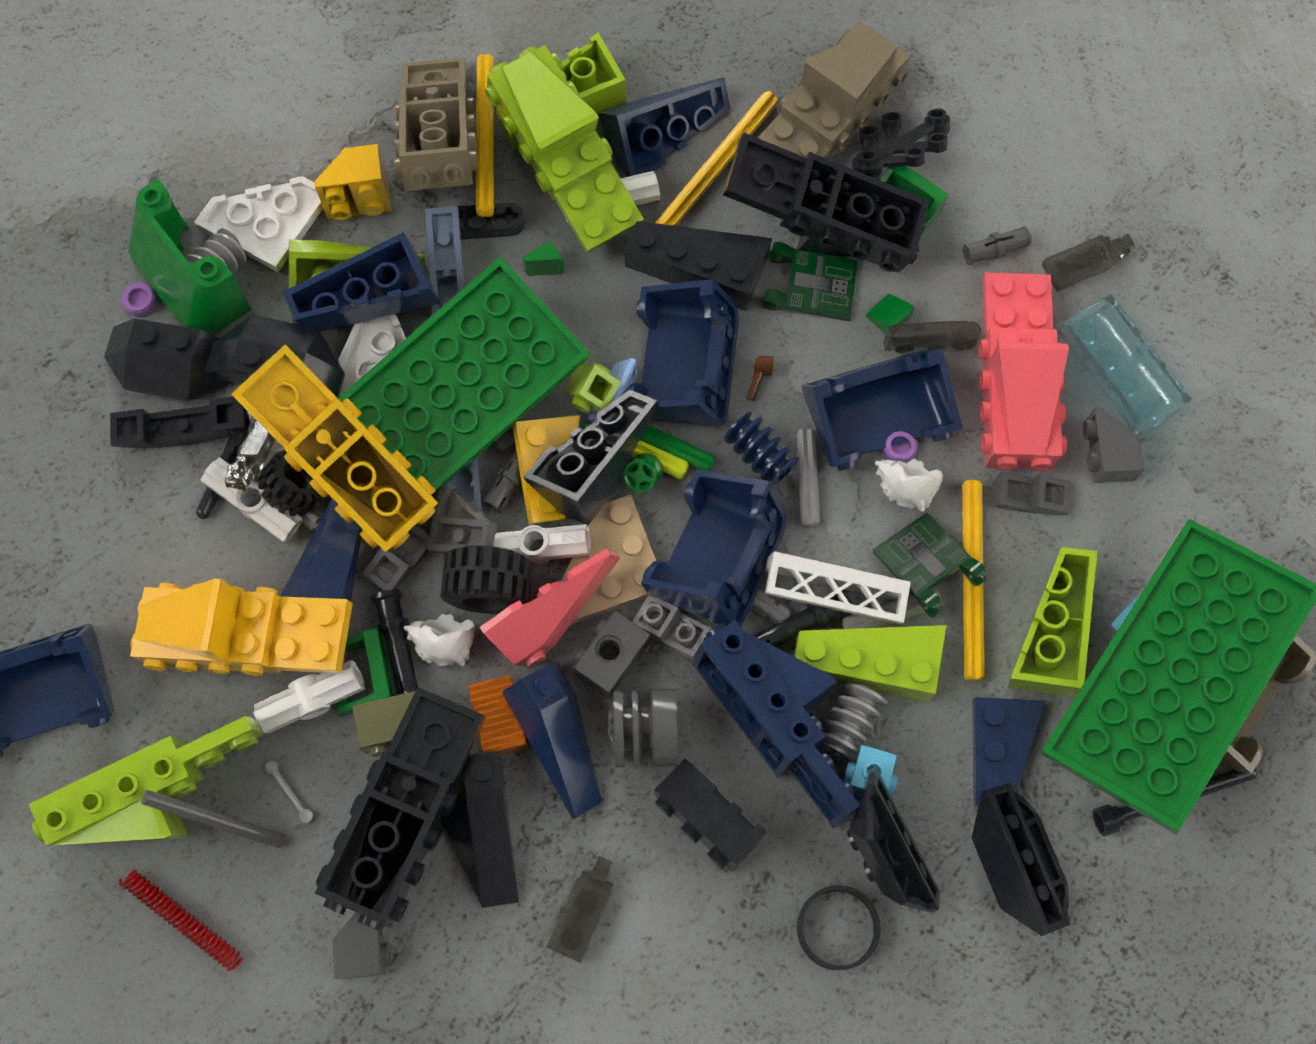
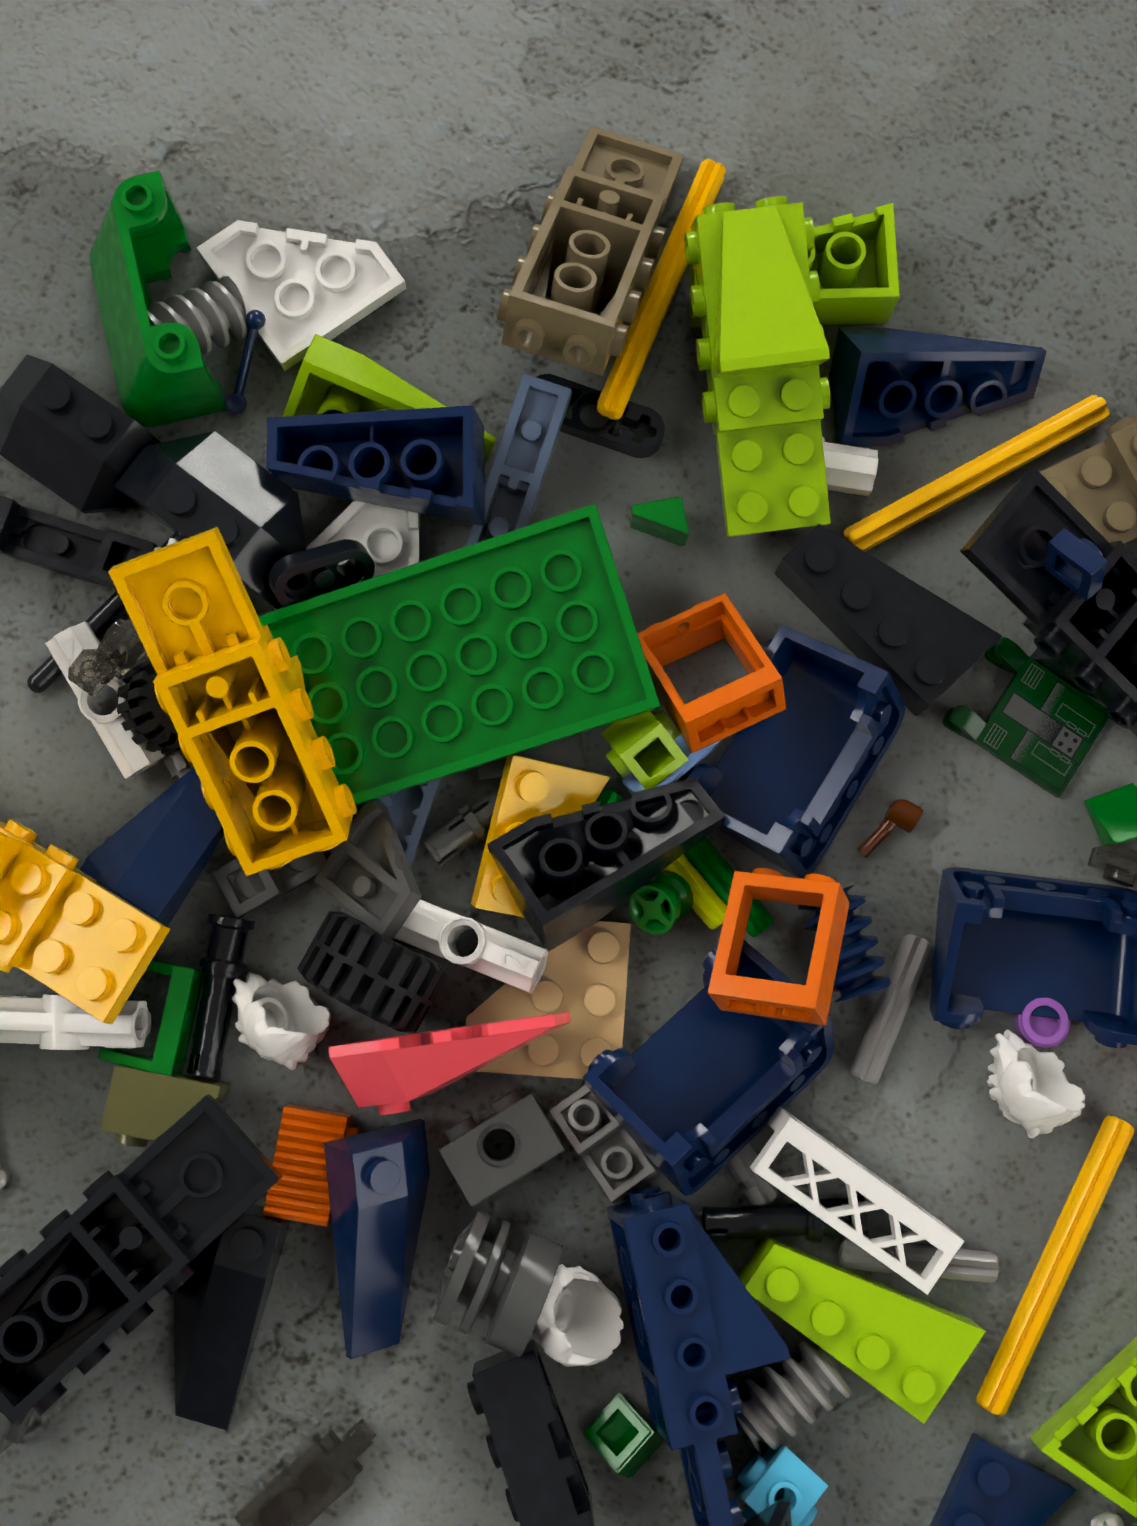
camera: 20 degrees right, 10 degrees up
(139, 300) = (78, 330): medium lavender tile -> none
(255, 302) = (236, 402): none -> dark blue hinge
(351, 367) = (320, 571): none -> black plate
(354, 184) = (442, 290): yellow slope -> none
(629, 342) = (730, 706): none -> orange window
(702, 729) = (579, 1319): none -> white hair
(745, 478) = (773, 998): none -> orange window
(765, 794) = (623, 1436): none -> green slope
(789, 171) = (1076, 563): none -> dark blue plate
(926, 557) = (1001, 1206): dark green flag -> none

